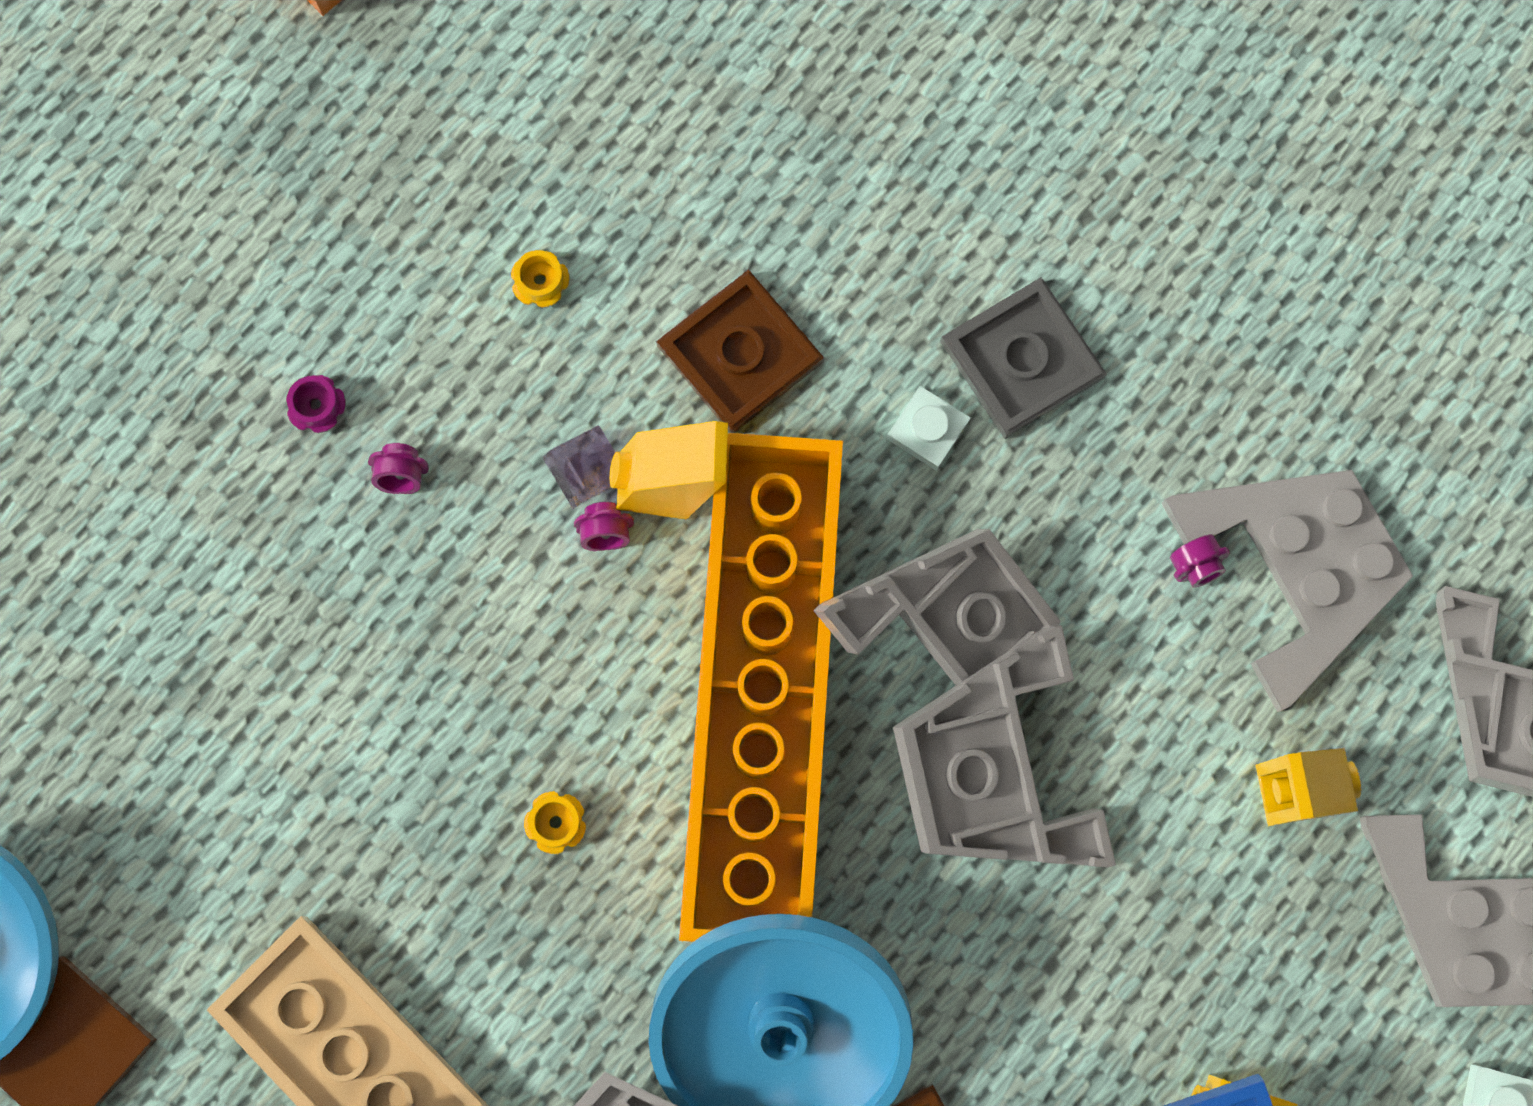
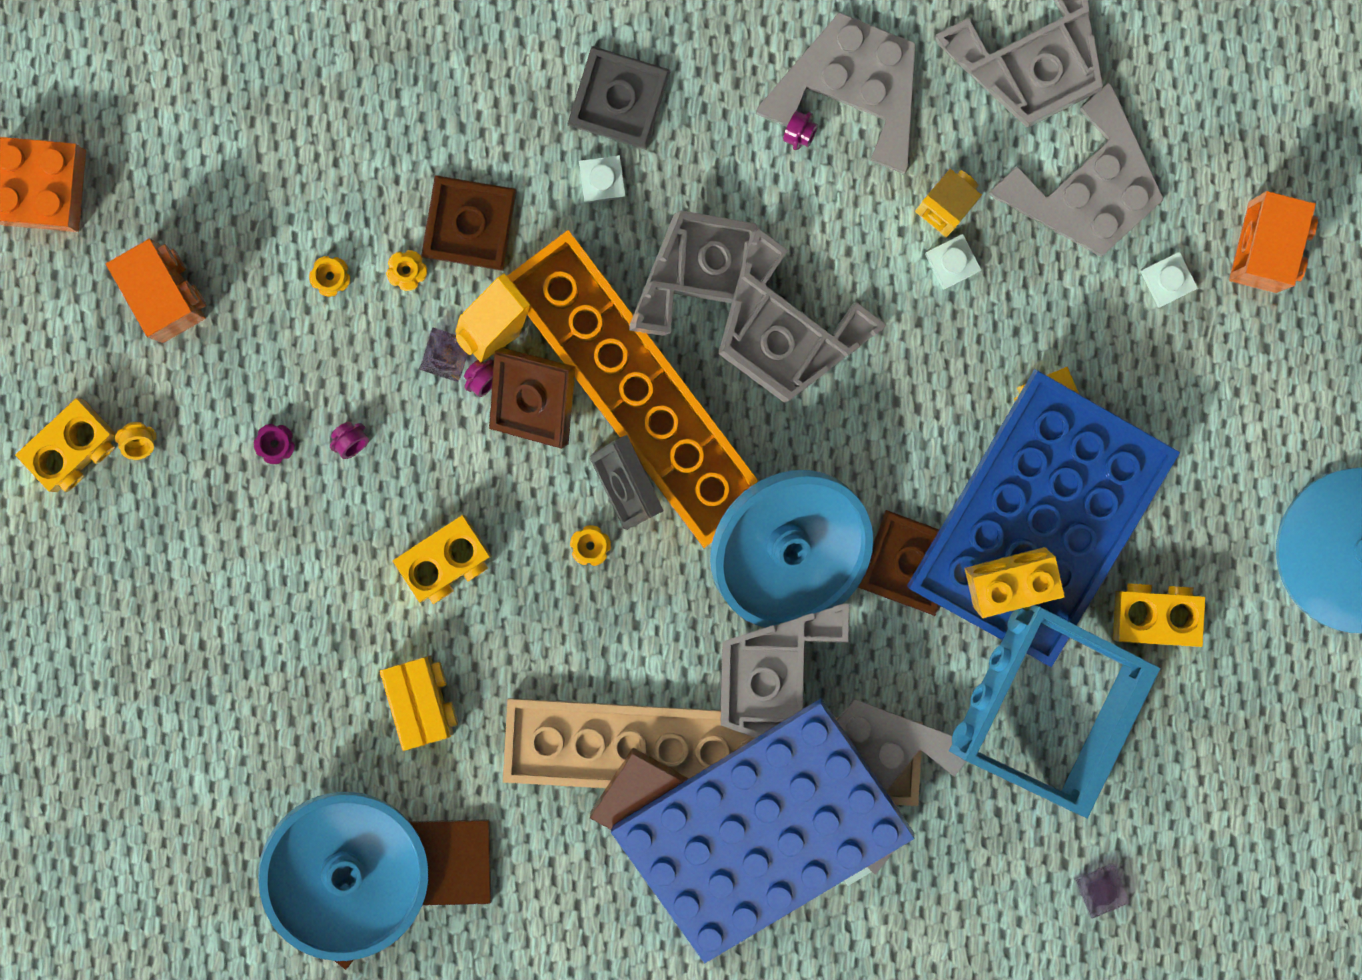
camera: 40 degrees left, 10 degrees up
(99, 202) = (61, 436): none -> yellow brick
(172, 272) = (136, 440): none -> yellow plate
(199, 830) = (418, 702): none -> yellow brick
(338, 129) = (156, 290): none -> orange brick
(379, 677) = (438, 551): none -> yellow brick
(630, 357) = (417, 272): none -> yellow plate
(637, 595) = (532, 397): none -> reddish brown tile
(657, 784) = (626, 483): none -> dark grey tile
(1254, 860) = (953, 262): none -> light aqua plate

